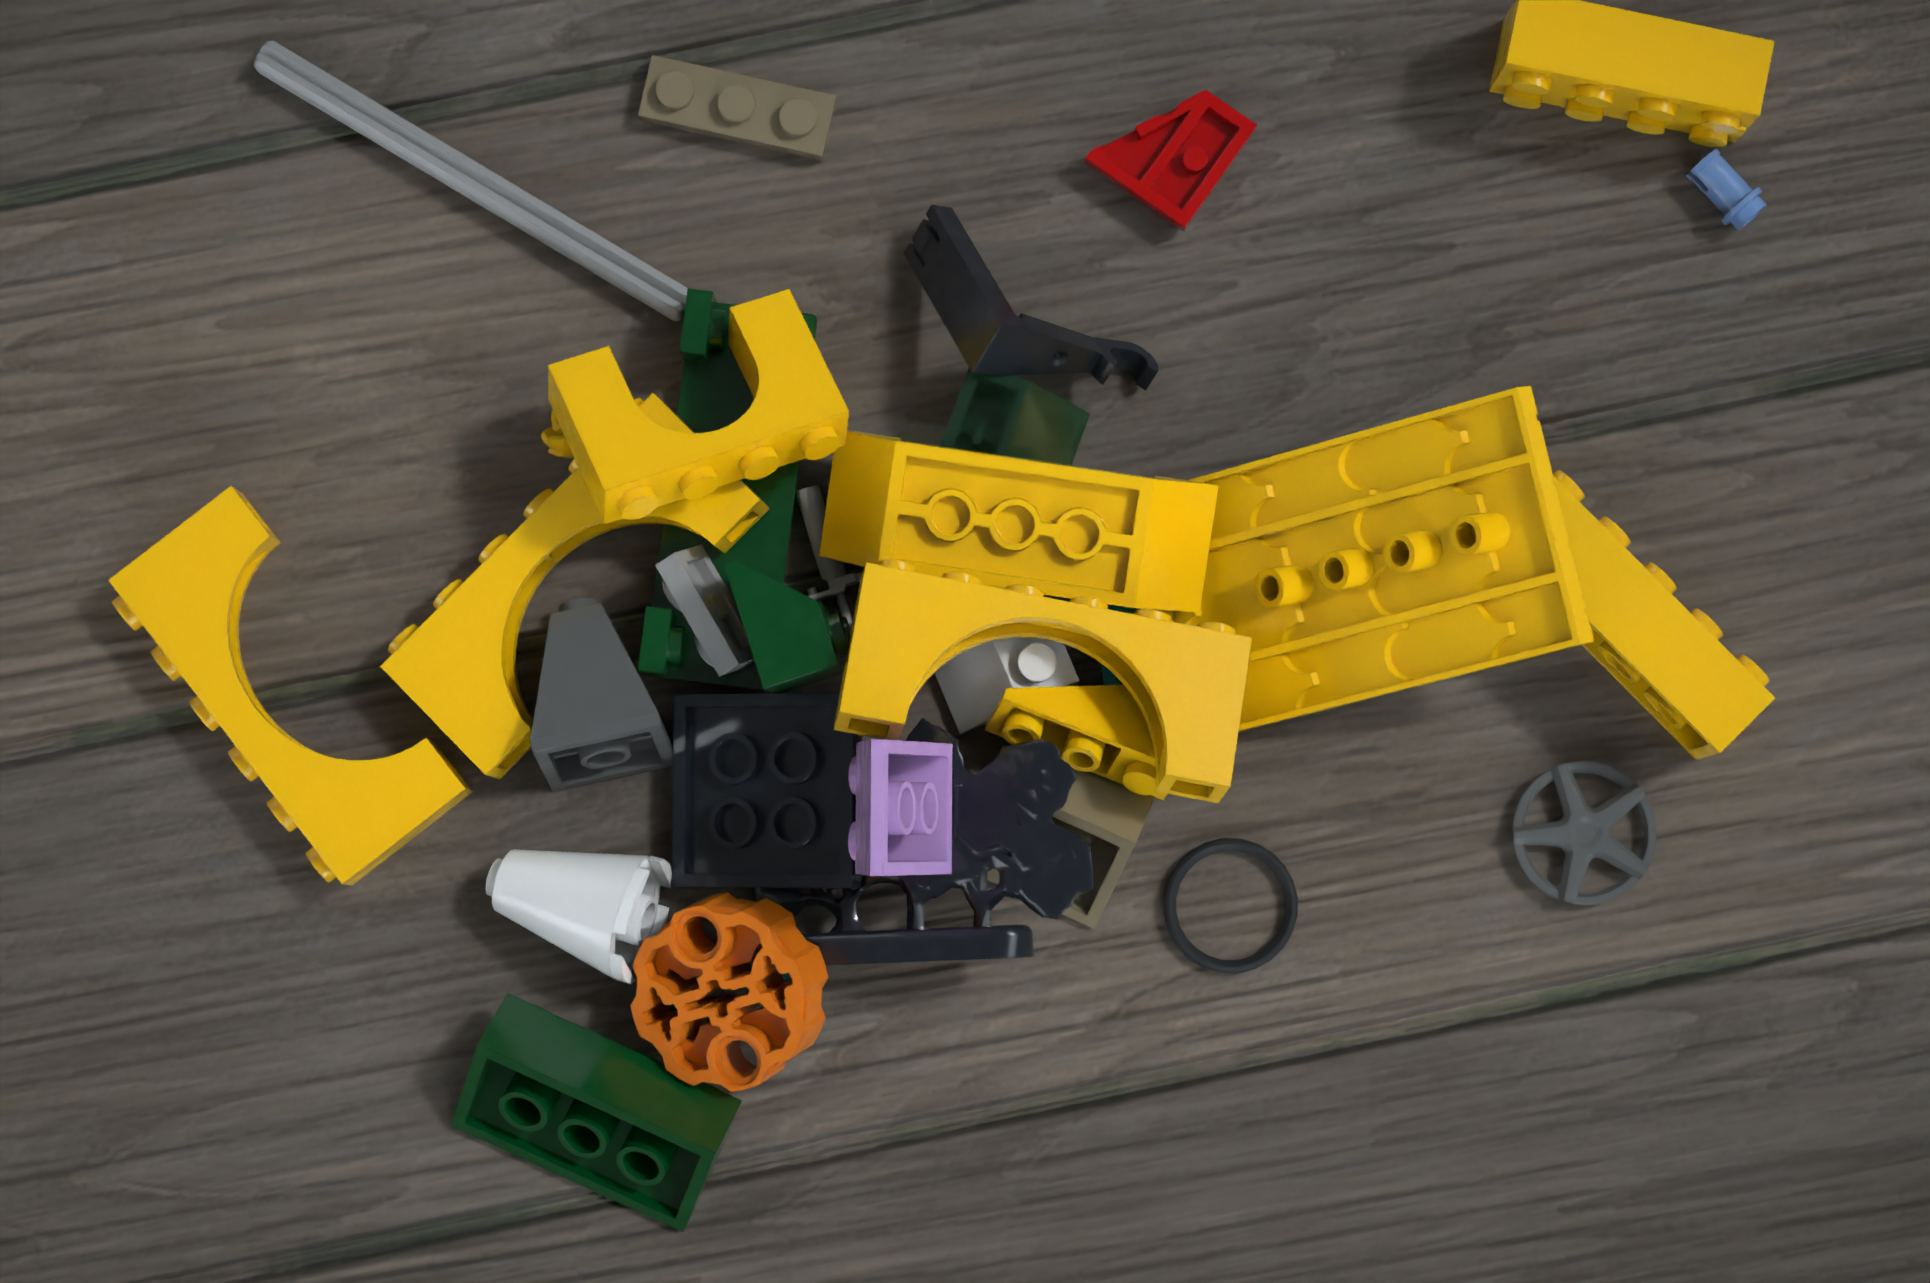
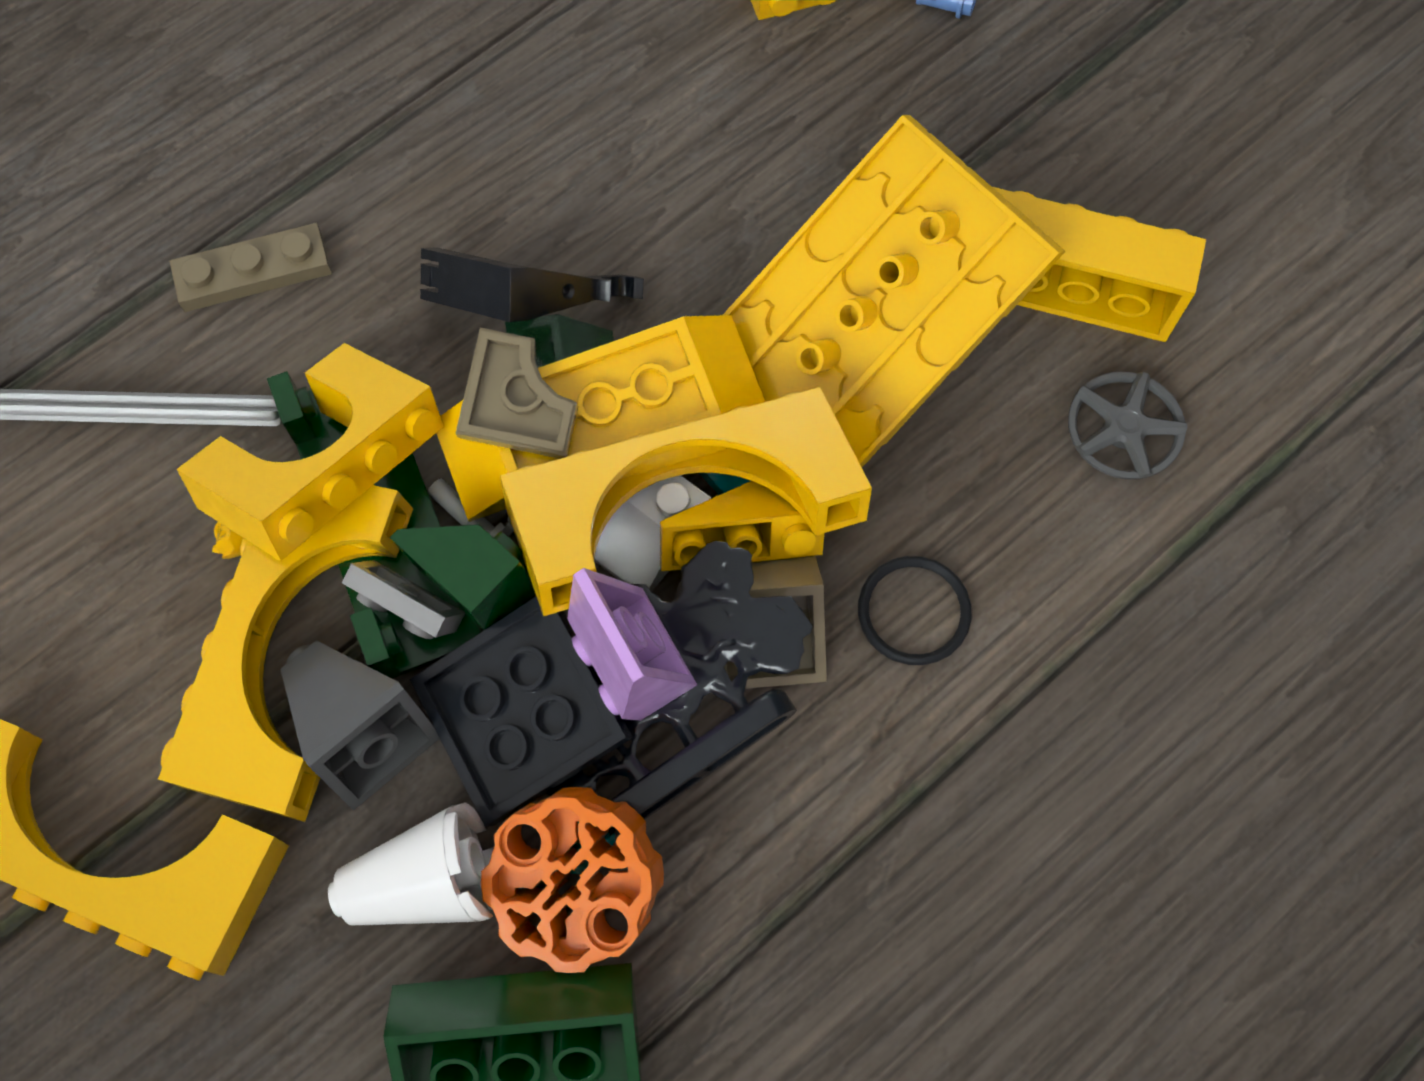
camera: 30 degrees left, 15 degrees down
(923, 477) = (510, 401): none -> dark tan tile
(1176, 156) = (576, 147): red wing -> none

